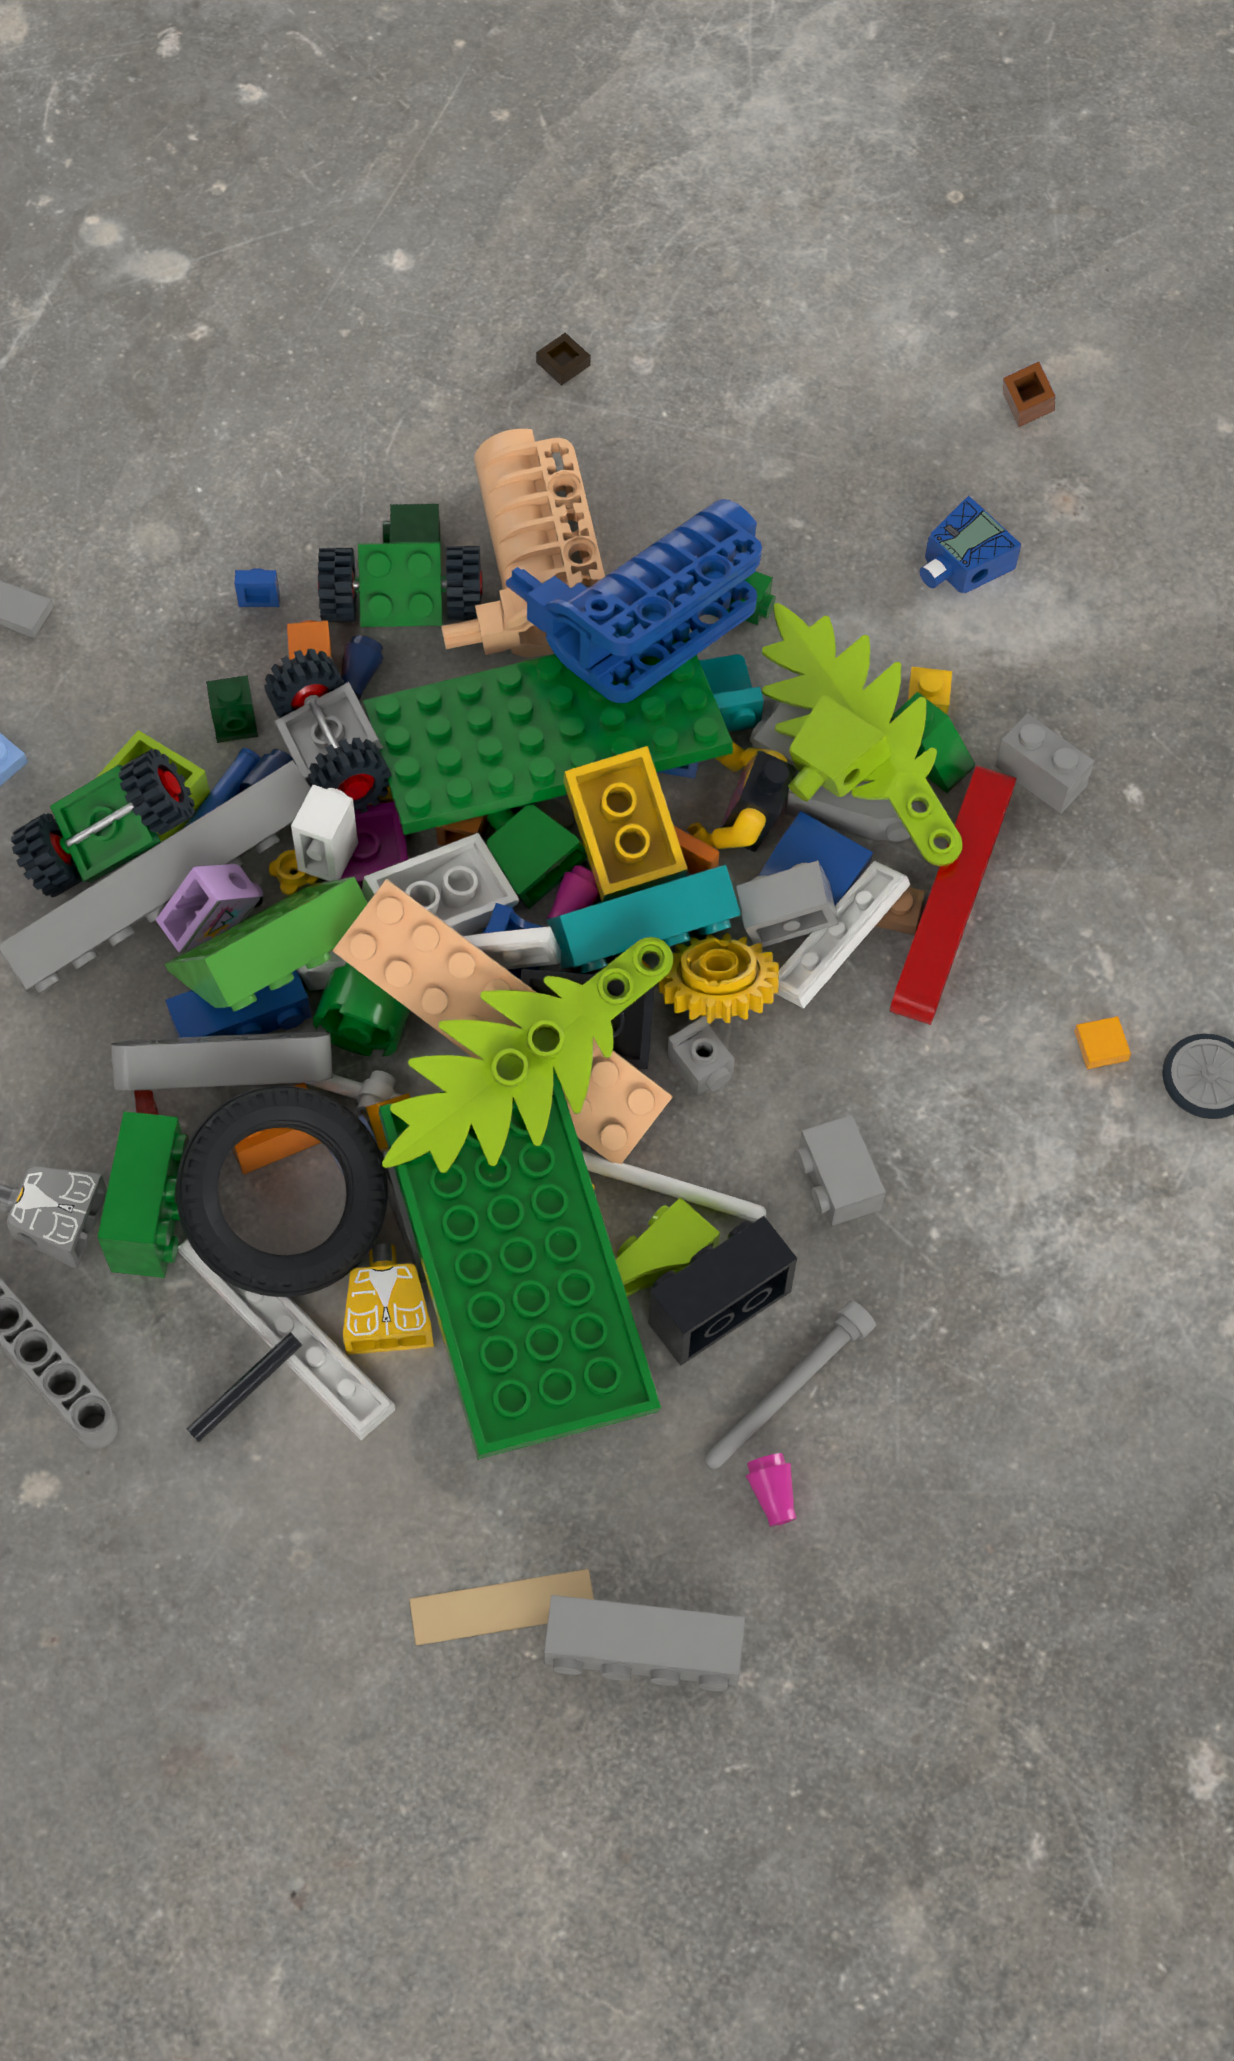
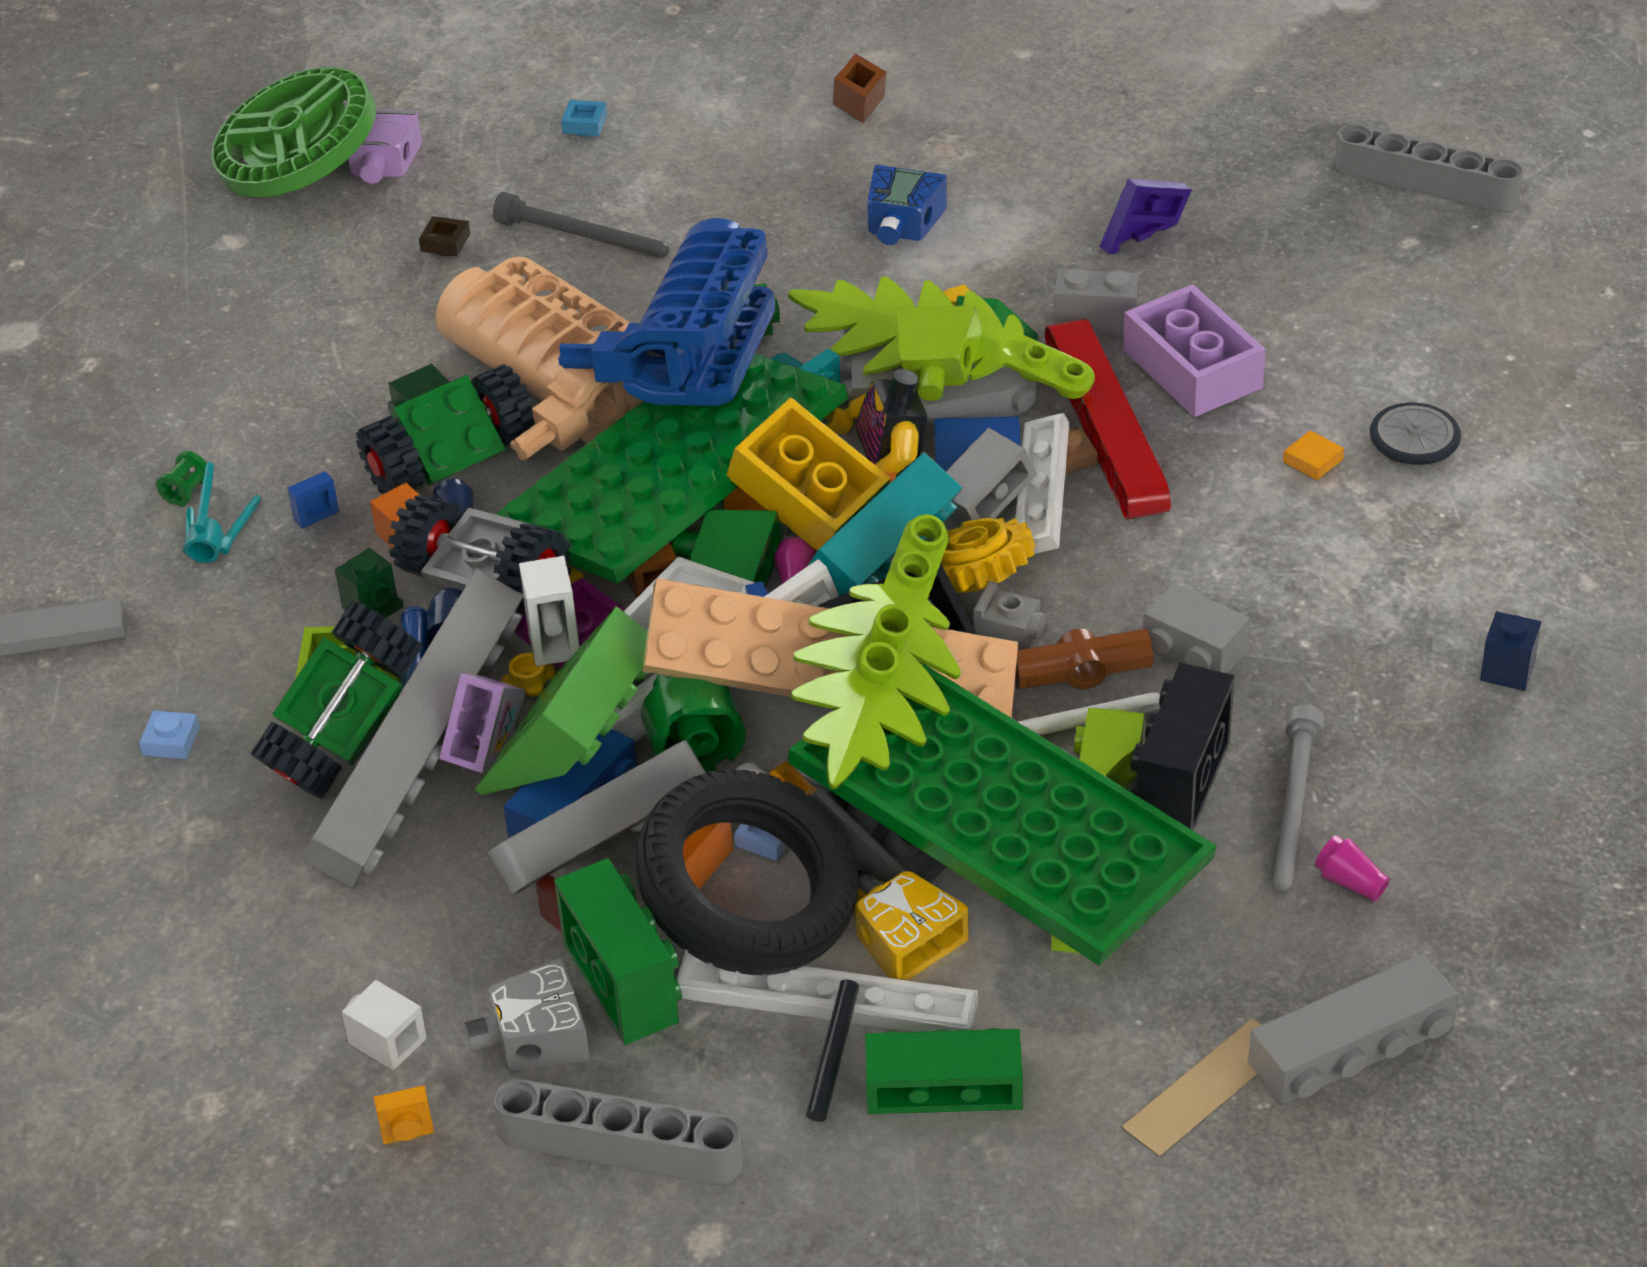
camera: 30 degrees left, 20 degrees down
(152, 575) = (205, 537): none -> teal plant
(191, 504) = (182, 478): none -> green bush
(308, 1462) = (944, 1071): none -> green brick
(514, 174) = (293, 132): none -> bright green piece
(585, 222) = (388, 146): none -> lavender torso
(639, 360) = (510, 210): none -> dark grey piece
(728, 1136) = (1083, 658): none -> dark orange piece
(776, 288) = (584, 118): none -> dark azure plate
(1080, 871) = (1194, 350): none -> lavender brick
(1085, 1362) = (1510, 650): none -> dark blue brick
(1171, 684) = (1143, 210): none -> dark purple wing

